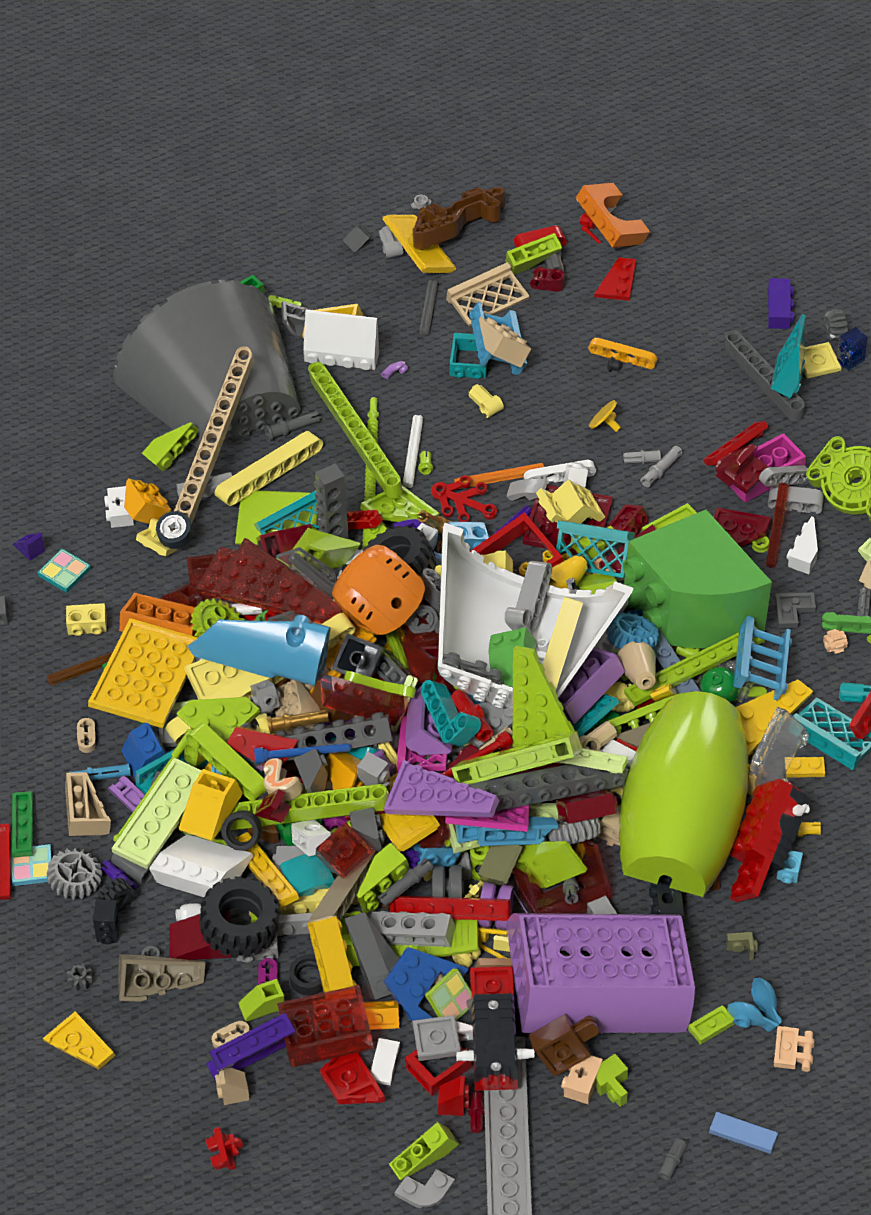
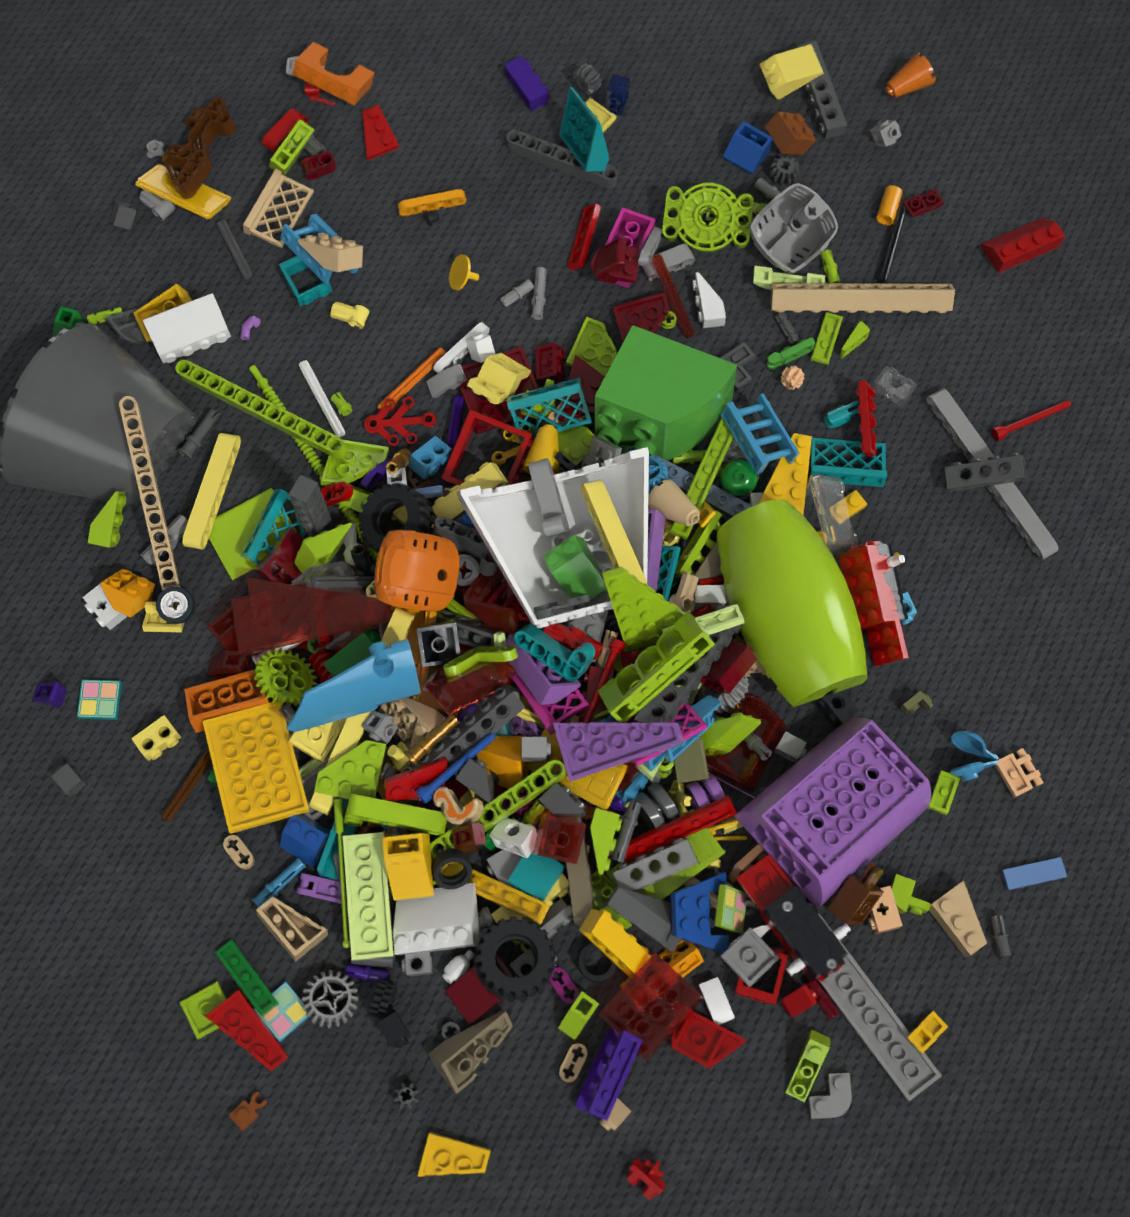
camera: 35 degrees left, 20 degrees up
(166, 897) = (426, 967): none -> light grey brick
(546, 1189) = (927, 1032): none -> yellow slope
(644, 1119) = (959, 920): none -> tan wedge

